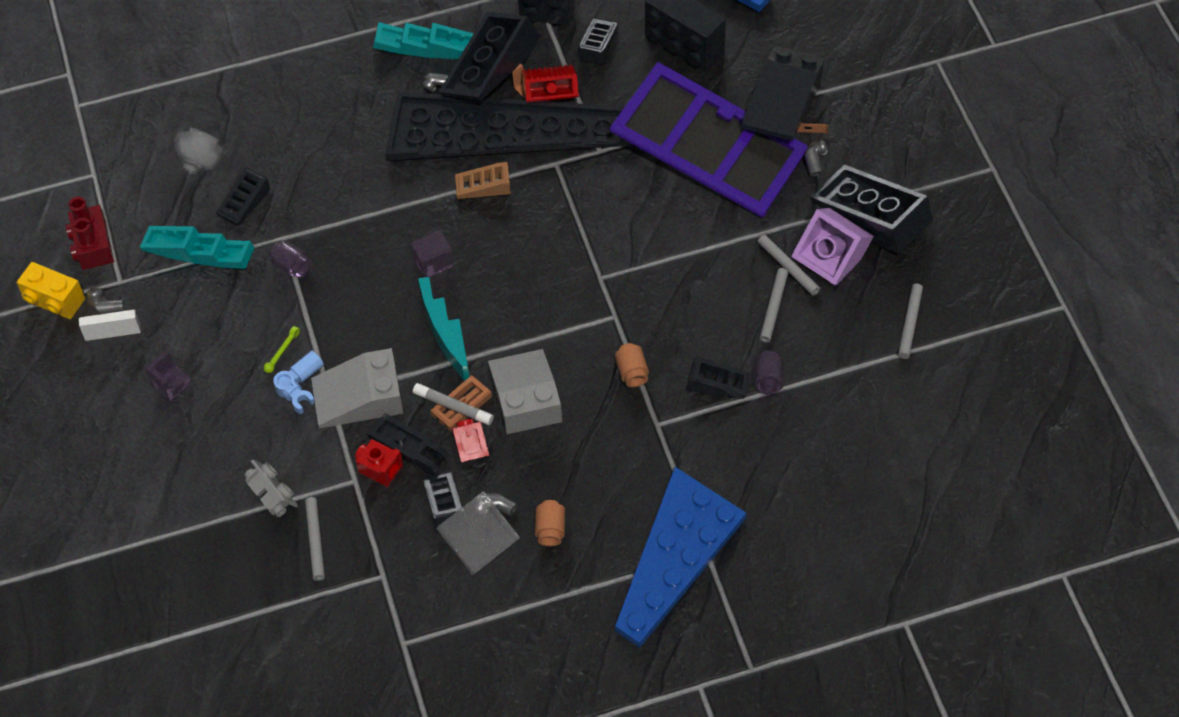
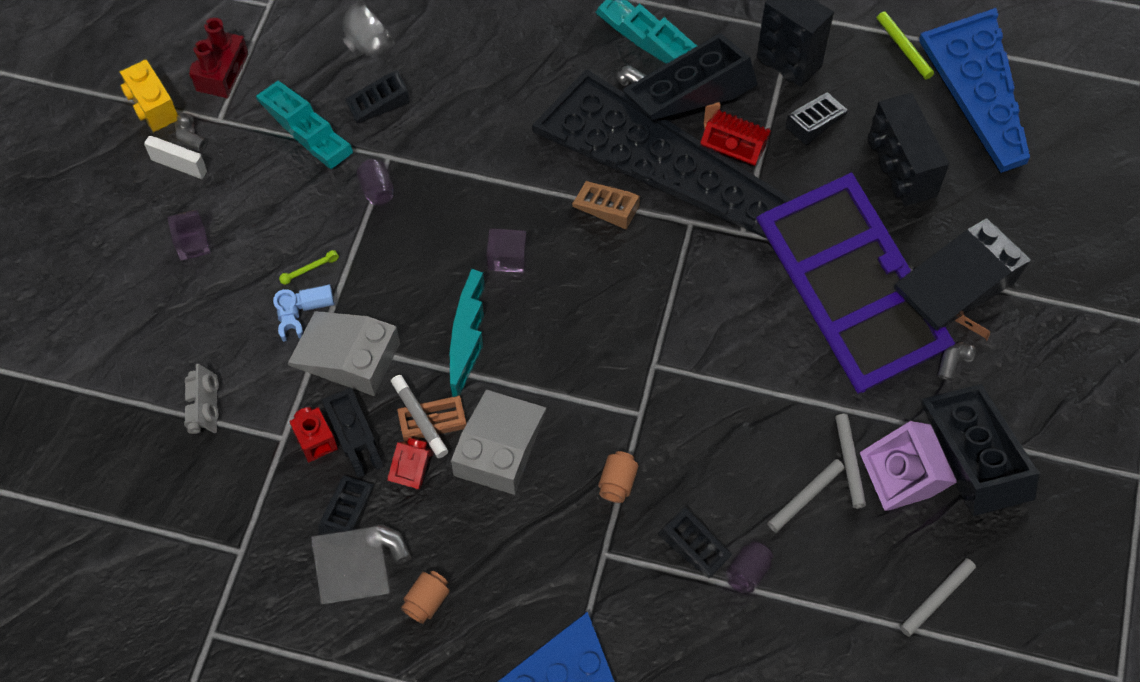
camera: 30 degrees right, 5 degrees up
(314, 539) = (205, 476): light grey piece -> none

